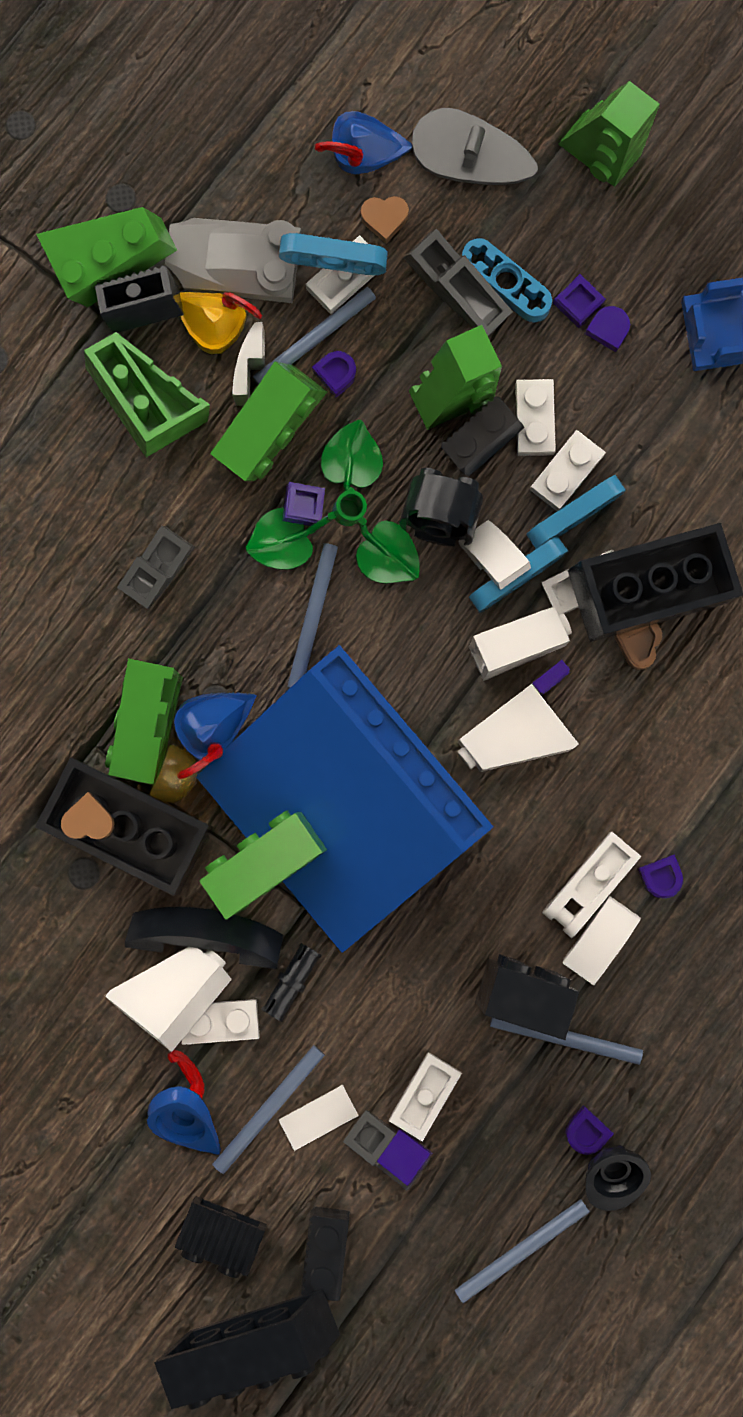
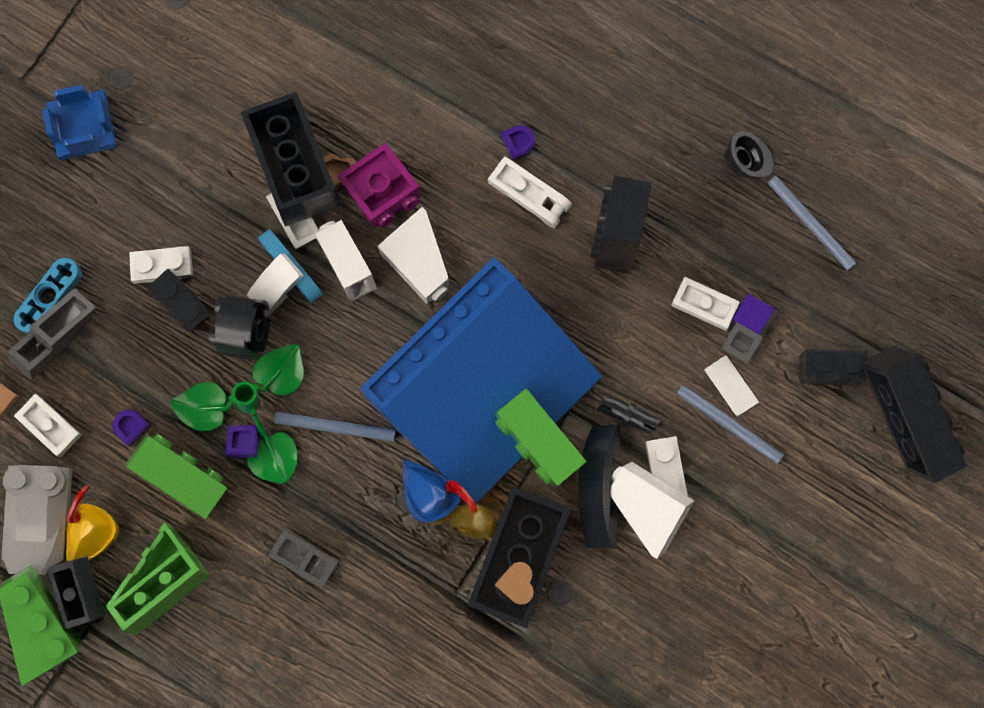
camera: 95 degrees left, 5 degrees down
(143, 721) = (433, 552): bright green wedge -> none
(180, 1112) = (741, 489): blue piece -> none
(220, 1237) = (832, 450): black brick -> none
(249, 358) = (122, 495): white slope -> none
(321, 331) = (101, 447): sand blue bar -> none
(333, 254) = (32, 432): dark azure beam -> none
(461, 380) = (134, 318): bright green wedge -> none
(551, 677) = (370, 233): dark purple tile -> none
(567, 470) = (203, 236): white plate -> none
(576, 511) = (237, 225): dark azure beam -> none
(578, 1041) = (652, 176): sand blue bar -> none
(579, 301) = (63, 238): dark purple tile -> none
(586, 1132) = (717, 182): dark purple tile -> none
(601, 940) = (572, 181): white slope -> none
(609, 327) = (84, 212): dark purple tile -> none
(612, 694) = (381, 186): none -> magenta plate

